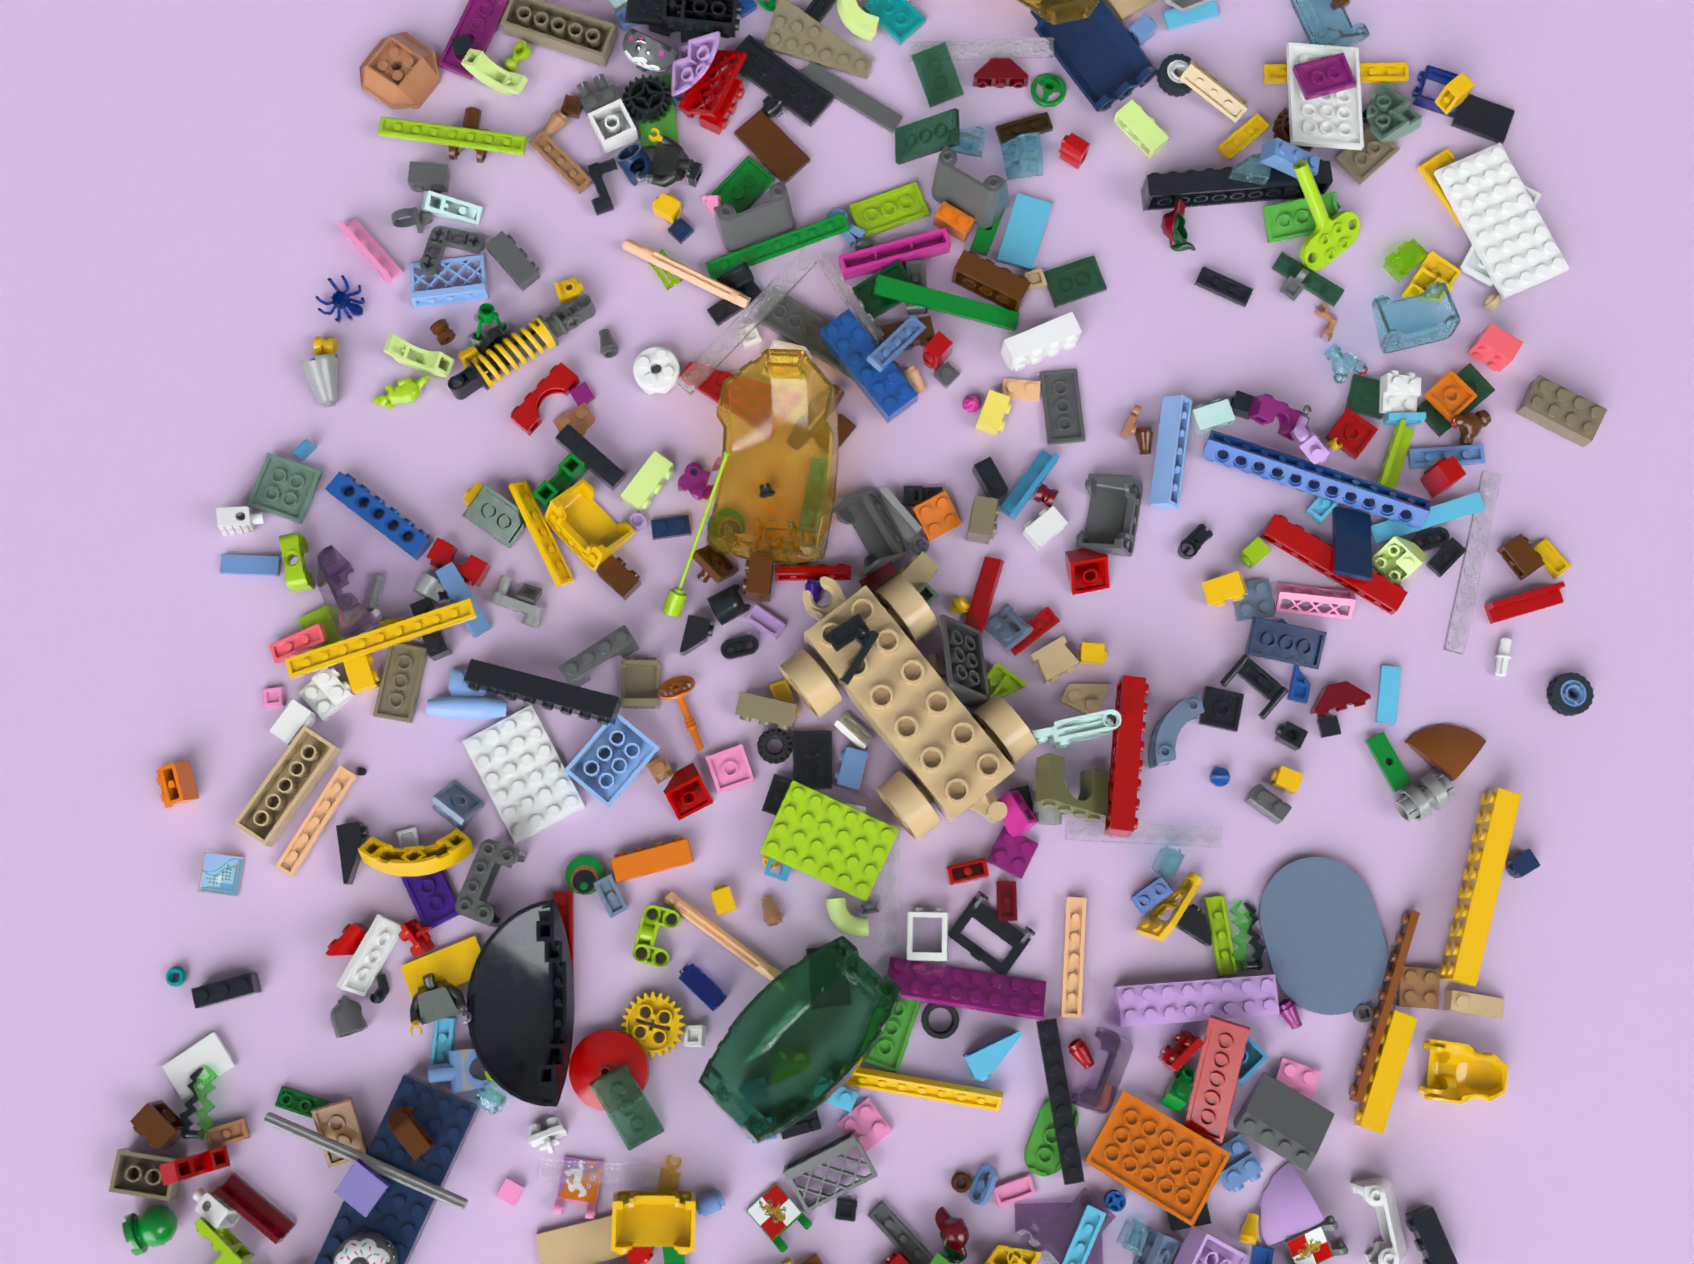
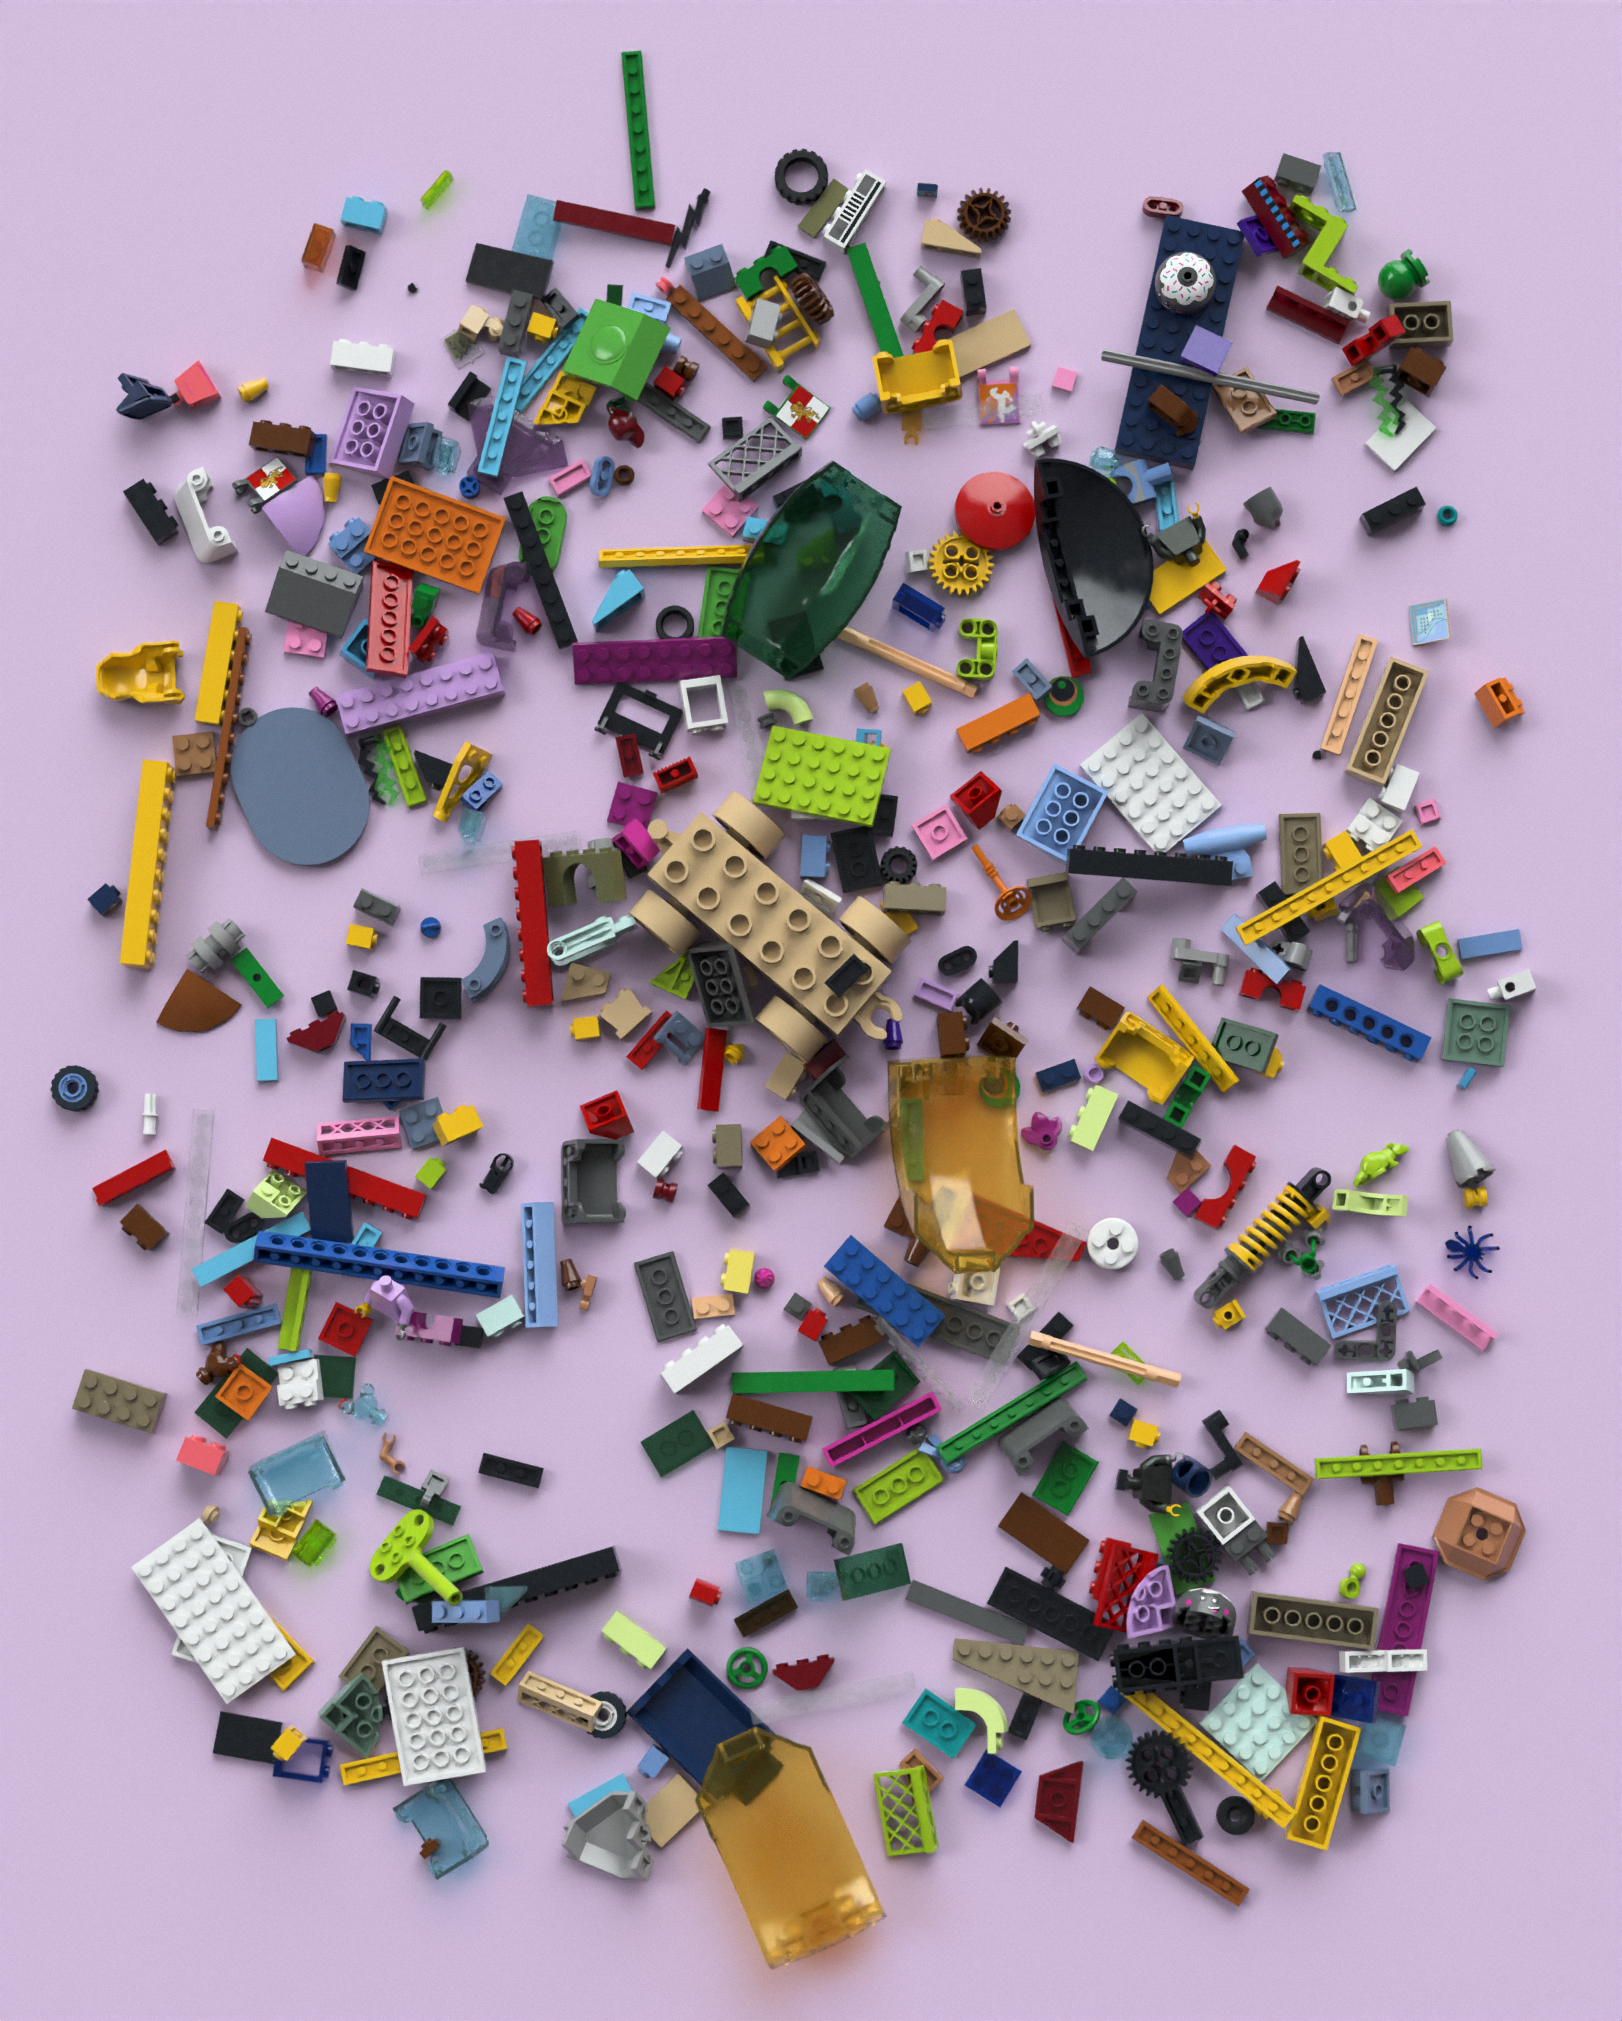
camera: 175 degrees right, 5 degrees up
(370, 956) = (1257, 571): white tile -> none
(443, 333) = (1353, 1239): reddish brown wheel -> none
(492, 75) = (1371, 1549): yellowish green arch -> none
(493, 336) = (1297, 1237): black plate -> none
(627, 1106) = (968, 479): clear green tile -> none
(676, 597) = (1021, 1125): lime flag -> none
(711, 201) = (1095, 1451): bright pink tile -> none
(766, 491) = (964, 1132): black piece -> none
(803, 572) = (869, 1061): red plate -> none
(866, 640) = (825, 969): black hinge -> none
(896, 343) = (858, 1316): medium blue plate -> none
(924, 542) = (785, 1114): dark grey bush -> none
(928, 594) = (773, 1051): sand green brick -> none
(937, 75) = (875, 1655): clear green tile -> none
(1028, 484) = (685, 1200): dark azure fence -> none
(1073, 957) = (551, 713): light nougat plate -> none
(1174, 228) = (576, 1525): hair -> none
(1324, 76) = (438, 1736): magenta tile -> none
(1473, 1004) = (136, 747): tan slope -> none
(1553, 560) = (111, 1235): yellow tile -> none

